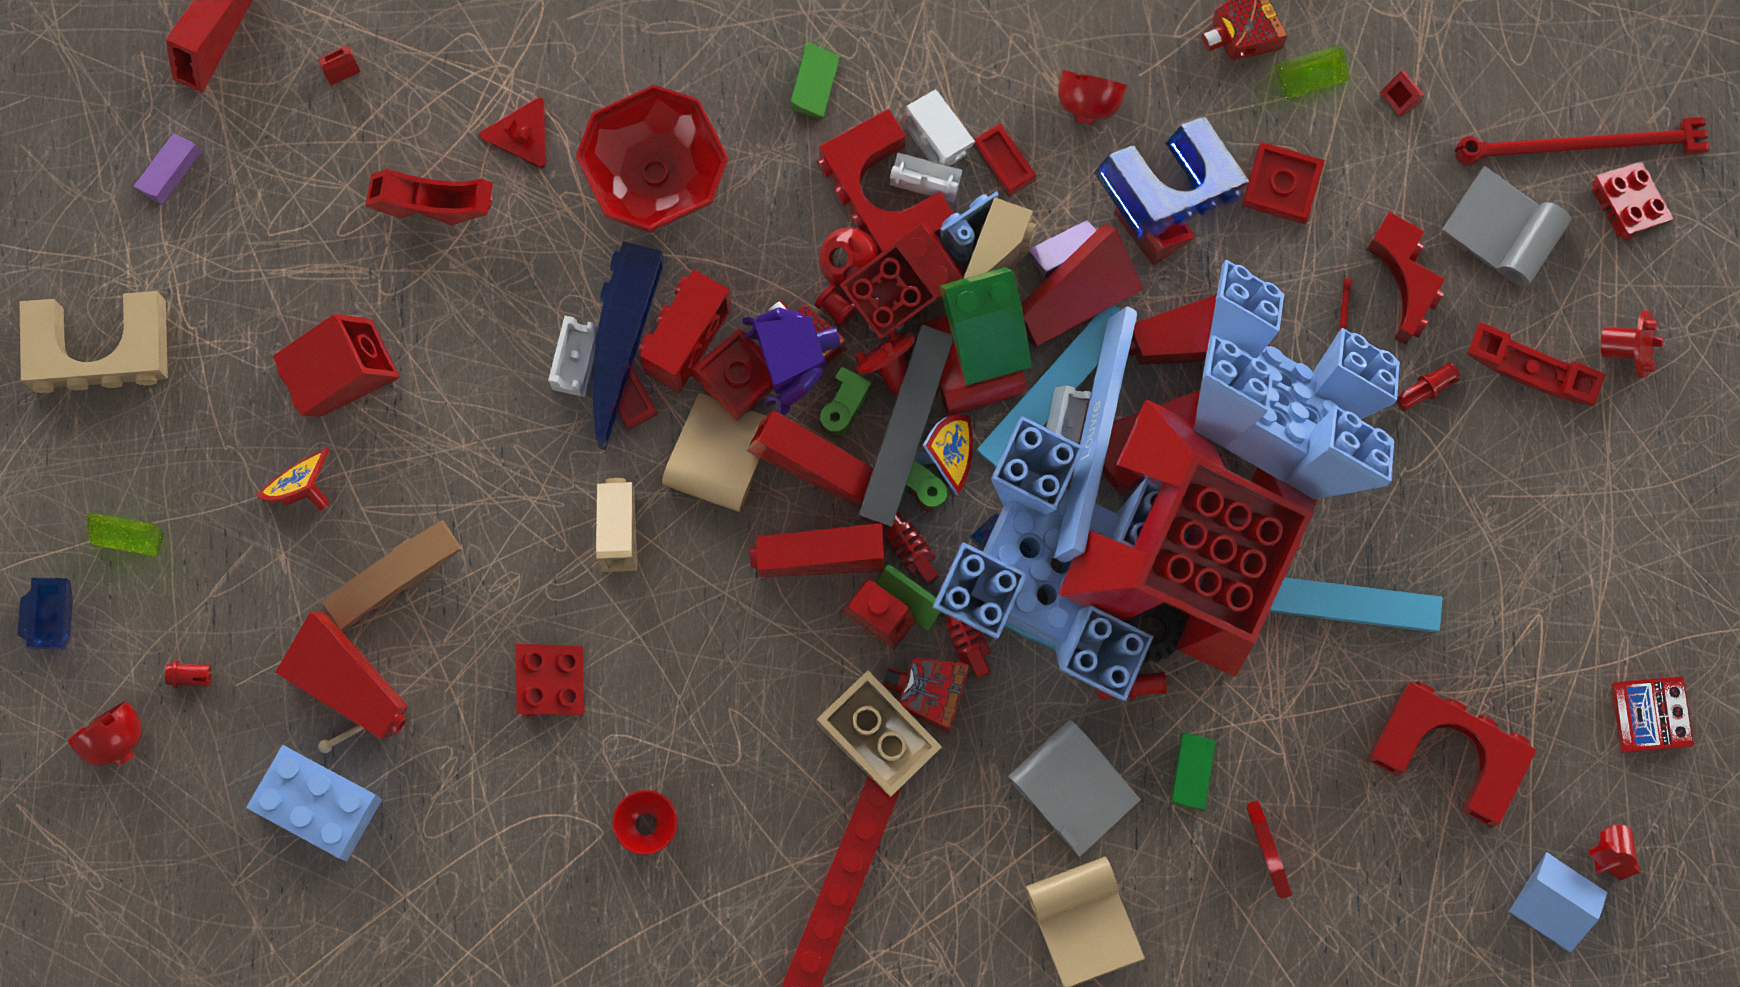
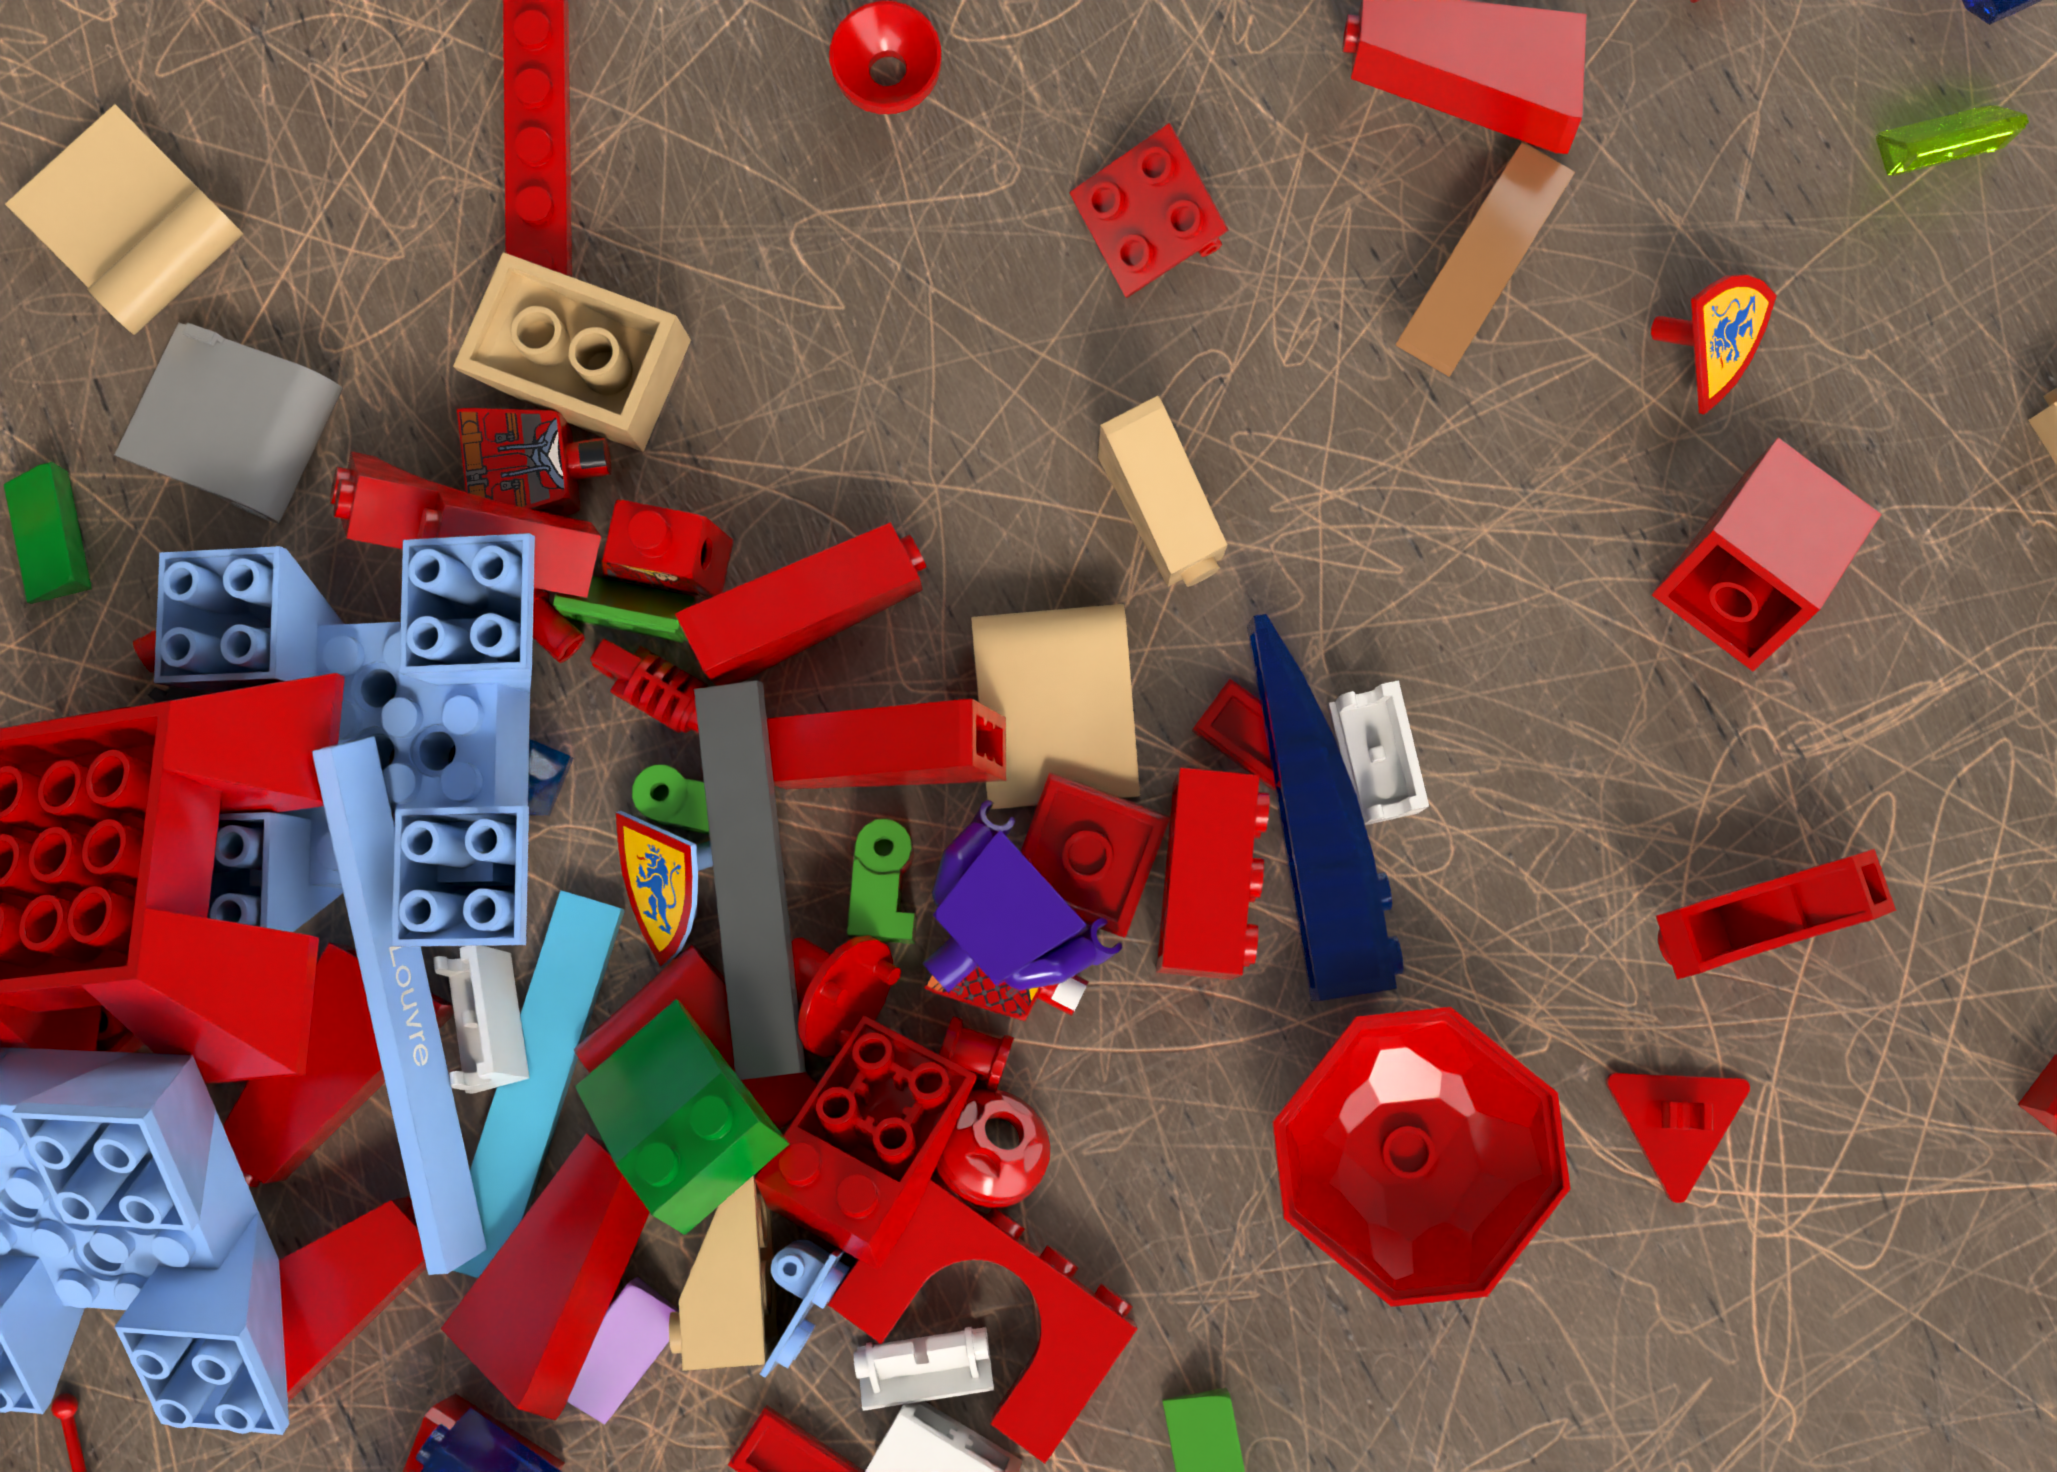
camera: 160 degrees right, 5 degrees up
(973, 657) = (392, 505): none -> red arch

